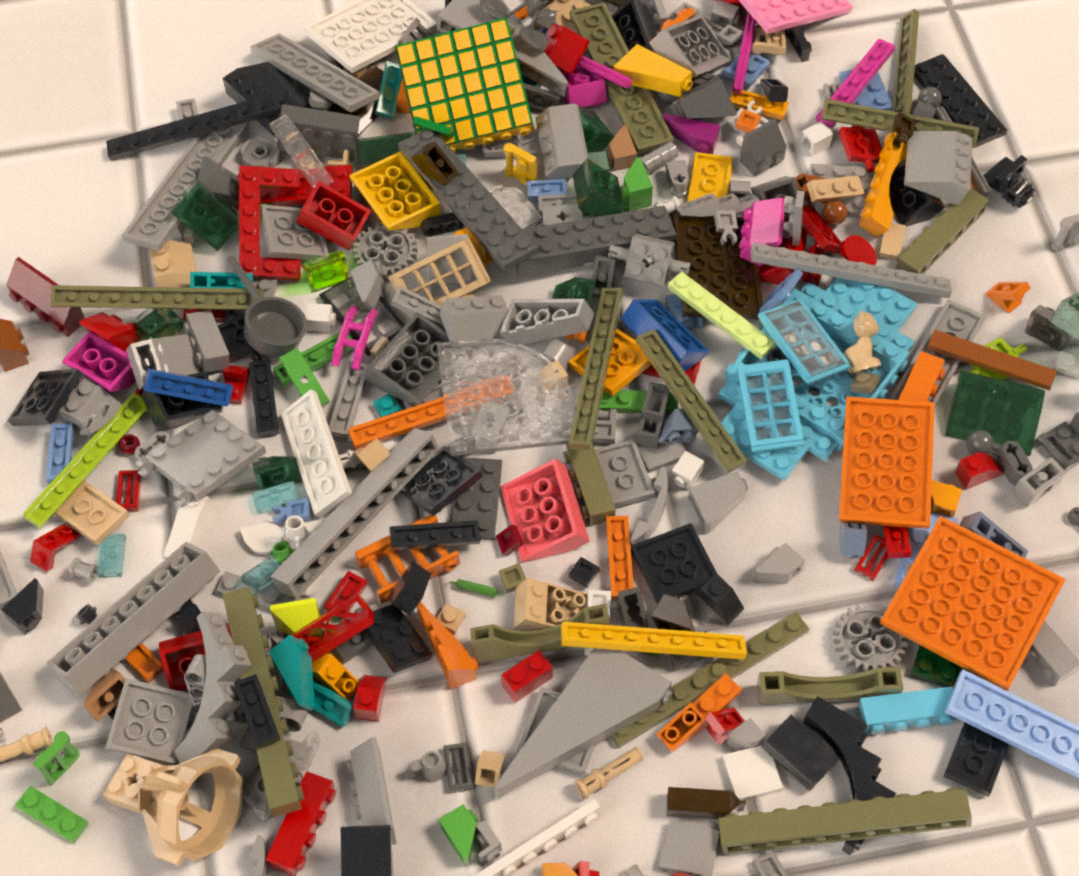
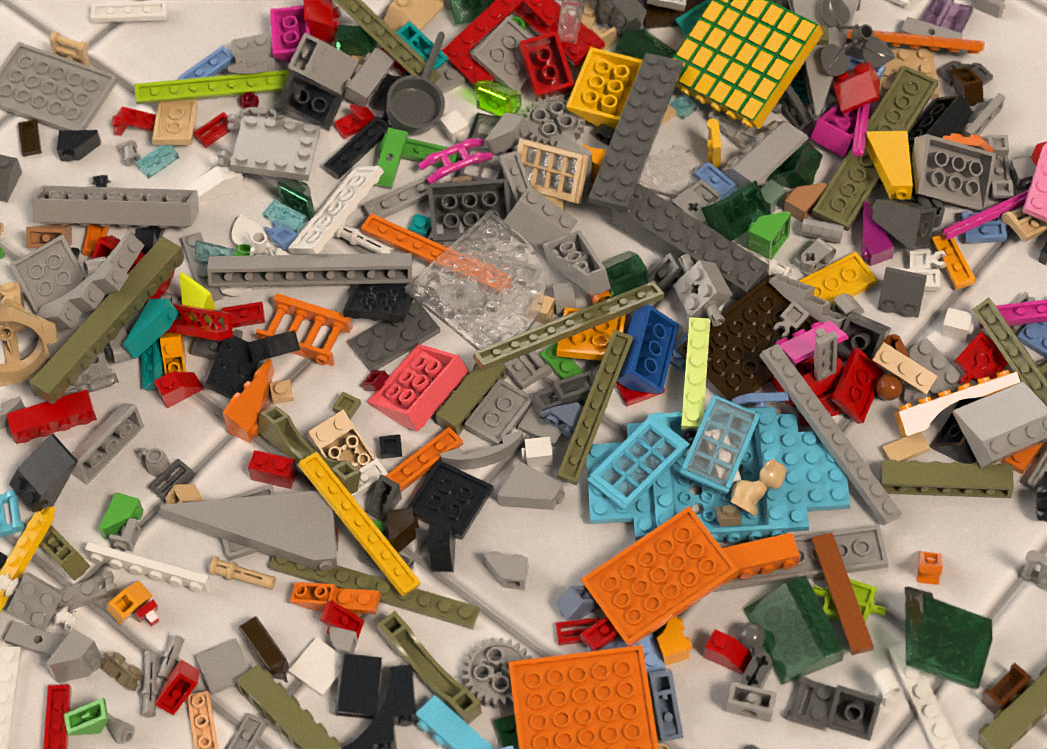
camera: 55 degrees right, 0 degrees up
(45, 397) = (236, 25): black plate -> none
(188, 387) = (313, 95): blue plate -> none
(257, 711) = (89, 320): black plate -> none
(372, 454) = (362, 243): tan panel -> none
(434, 535) = (331, 329): black plate -> none
(435, 163) = (638, 88): dark brown slope -> none
(439, 128) = (683, 62): green tile -> none
(477, 588) = (320, 390): bright green piece -> none
(747, 121) = (918, 262): orange plate -> none
(774, 90) = (977, 260): black slope -> none
(858, 250) = (863, 430): red tile -> none
(904, 128) = (1015, 373): dark brown plate -> none

